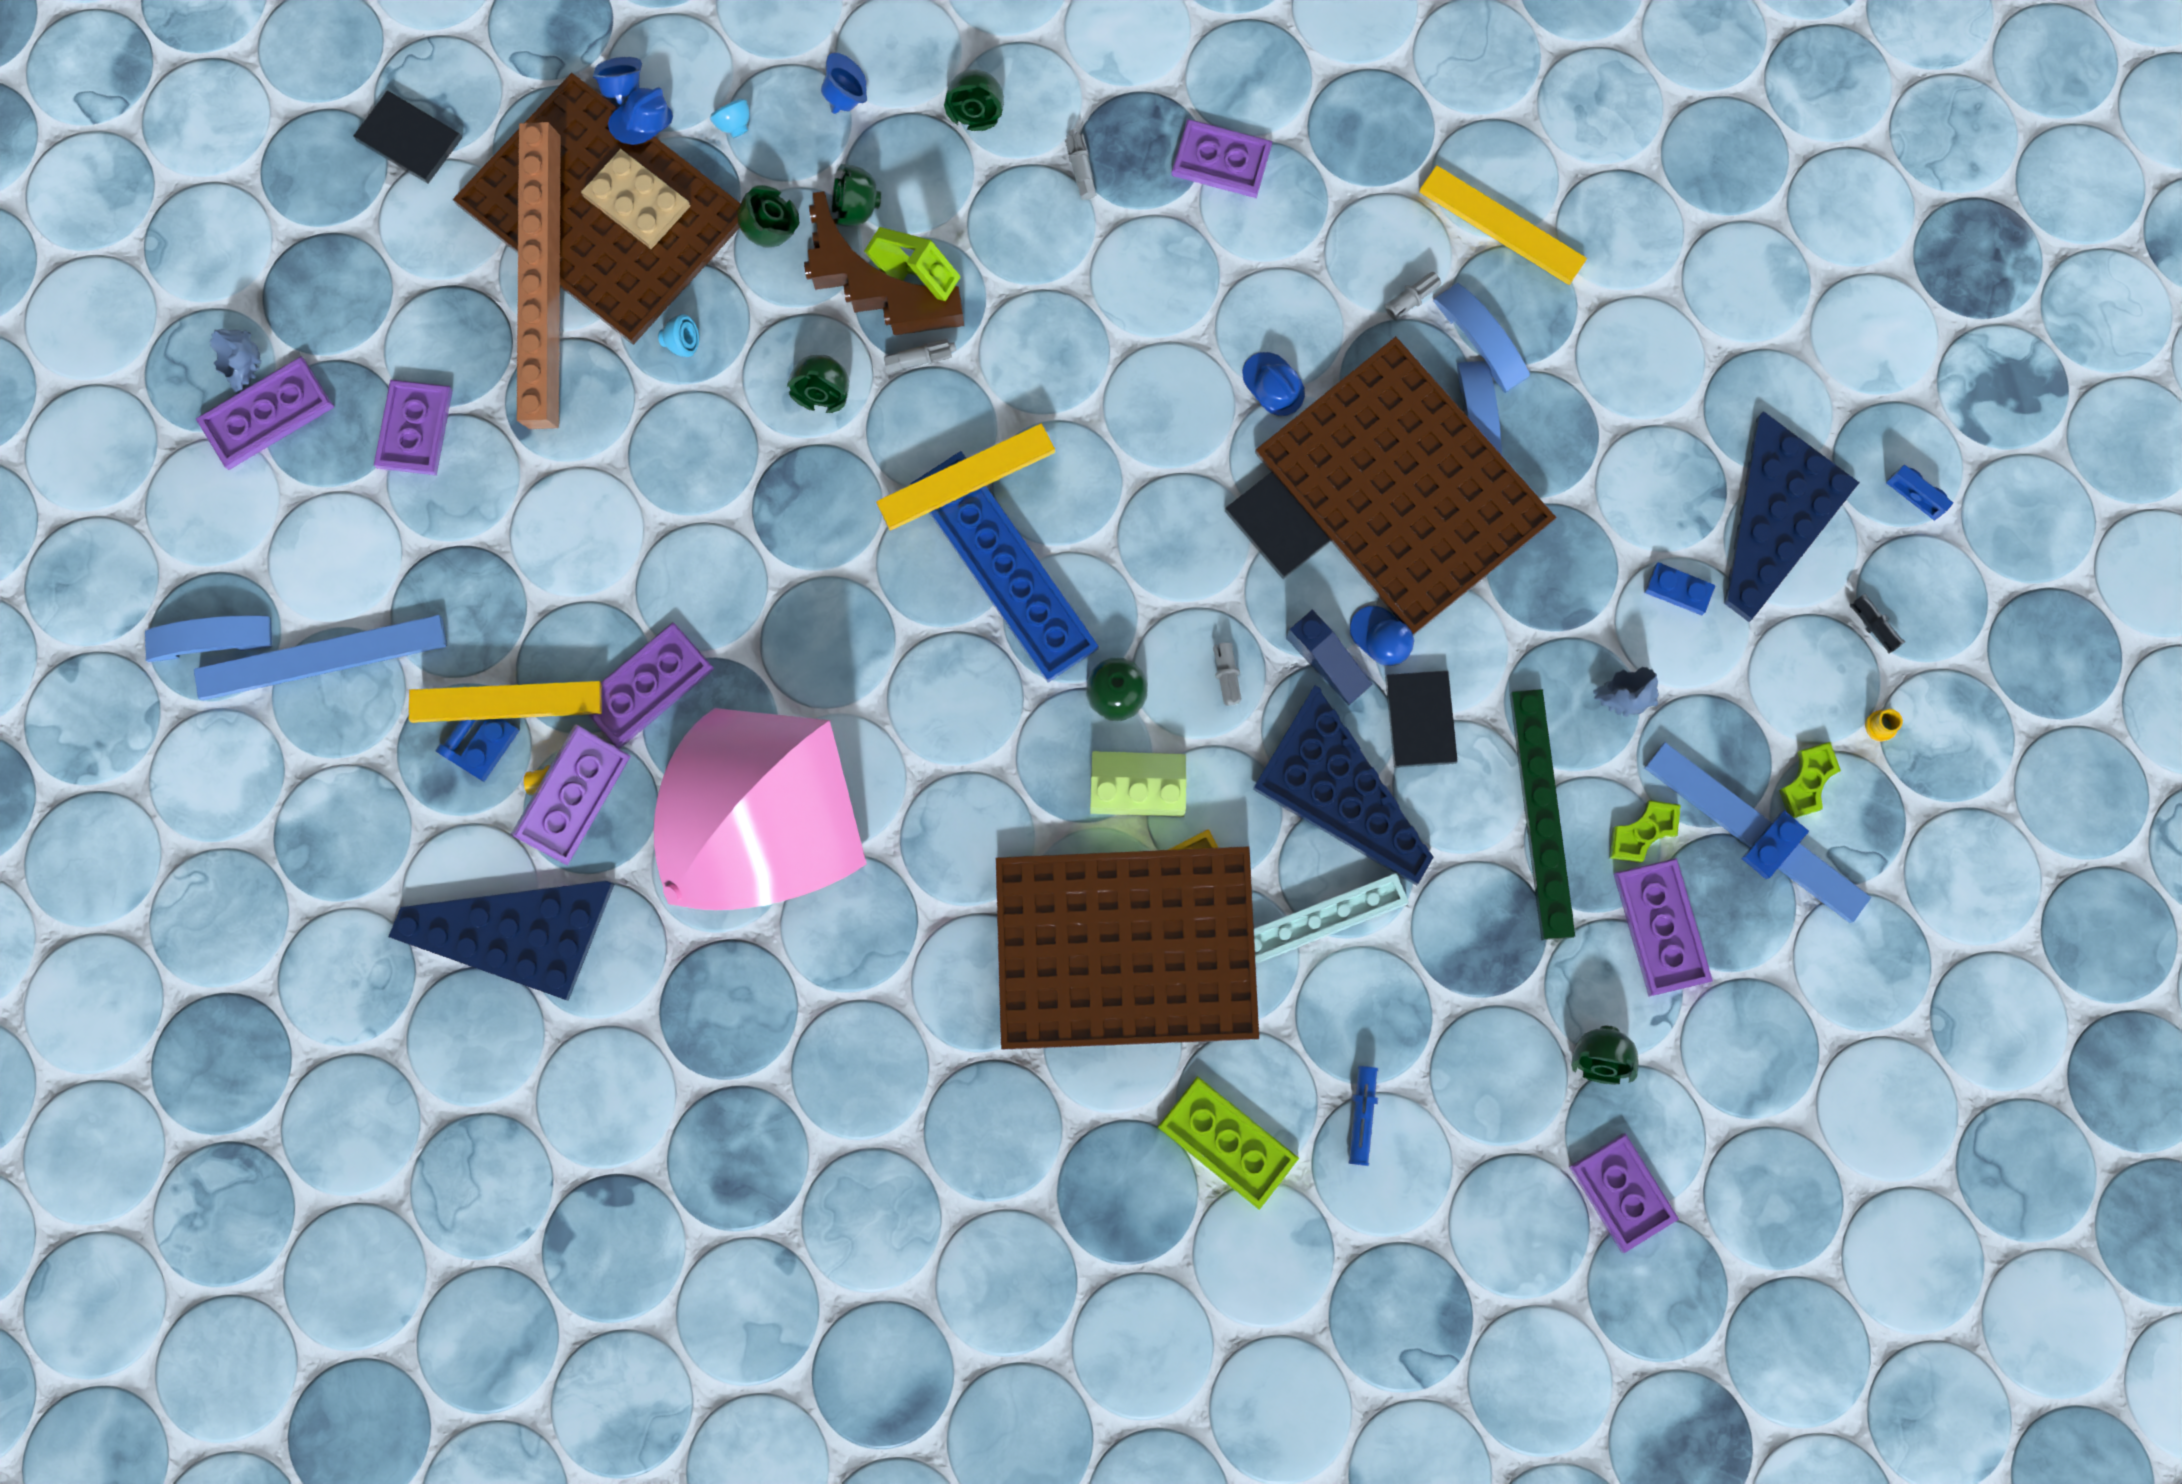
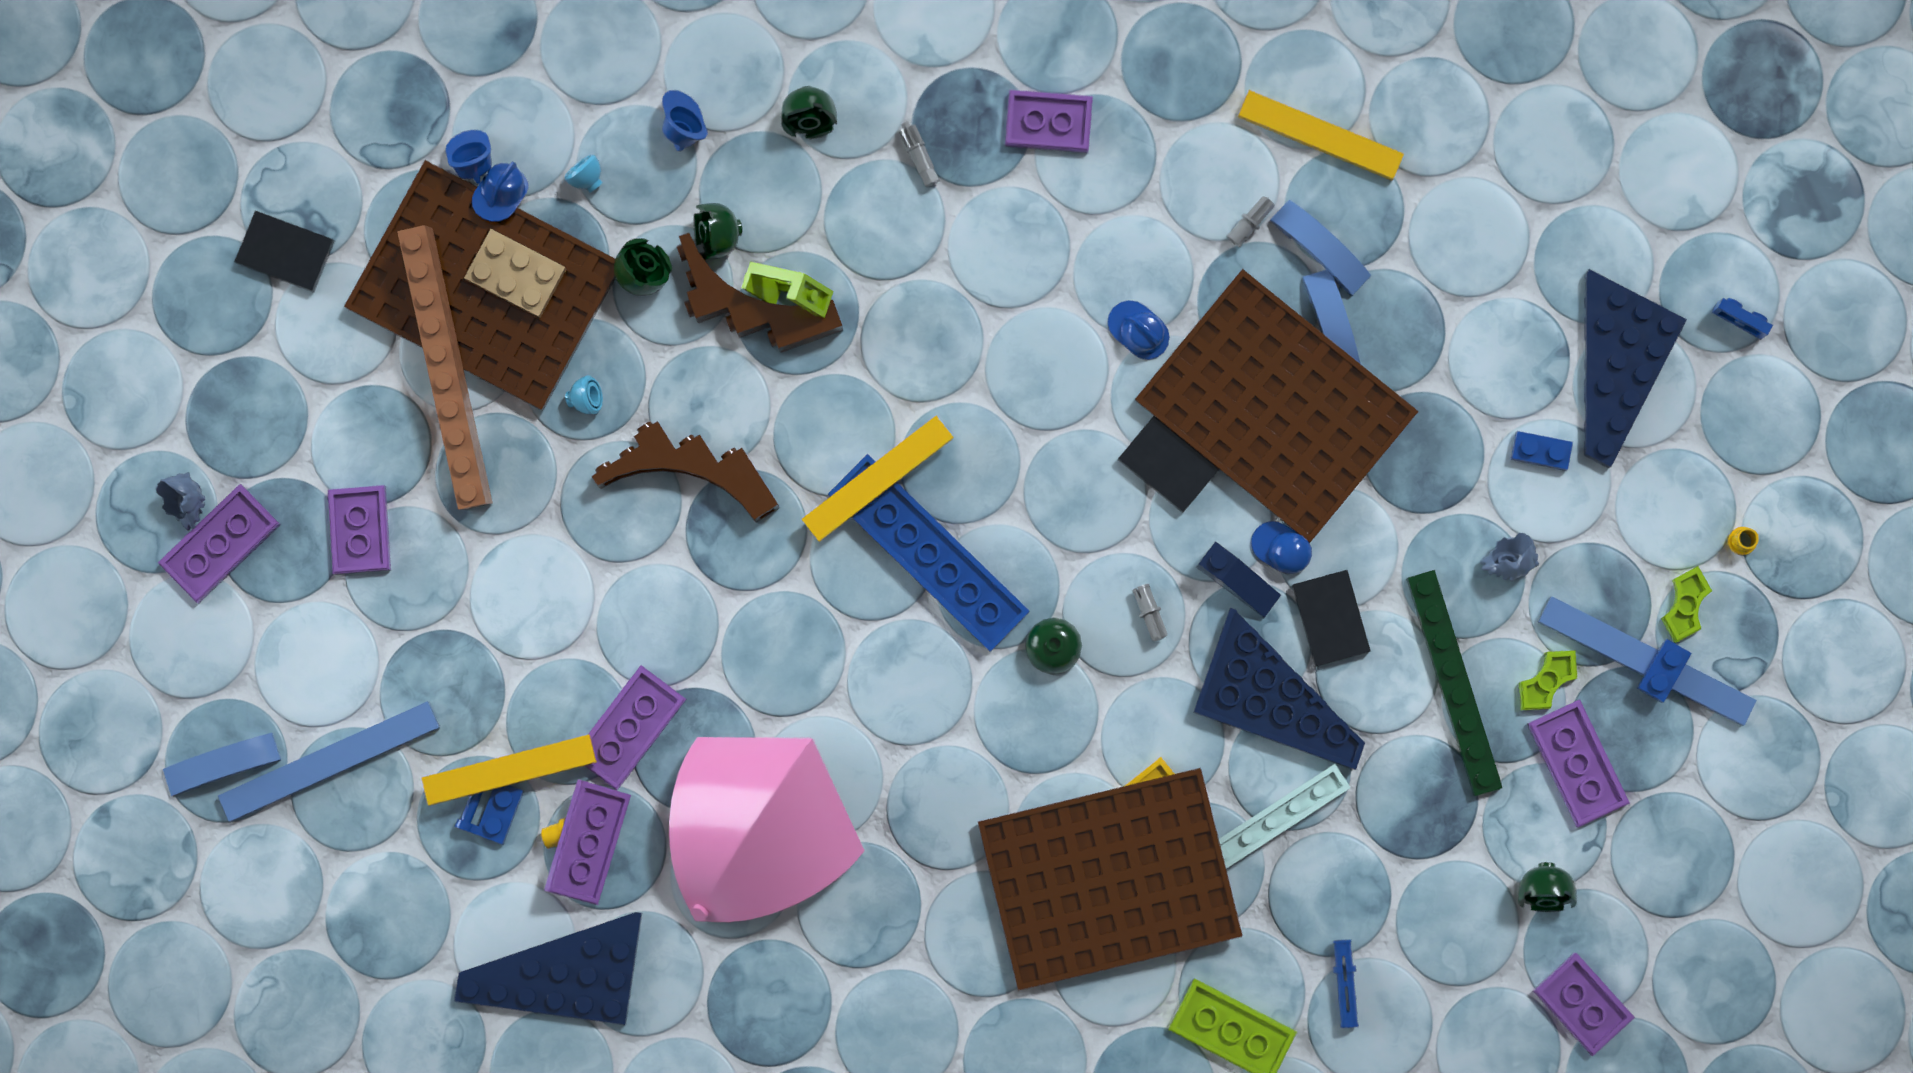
camera: 10 degrees left, 5 degrees up
(776, 420) = (693, 457): none -> reddish brown arch
(819, 382) = (725, 414): dark green cylinder -> none
(920, 355) = (809, 369): light grey piece -> none
(1138, 784) = (1090, 727): yellowish green slope -> none
(1877, 623) = (1723, 448): black pin -> none

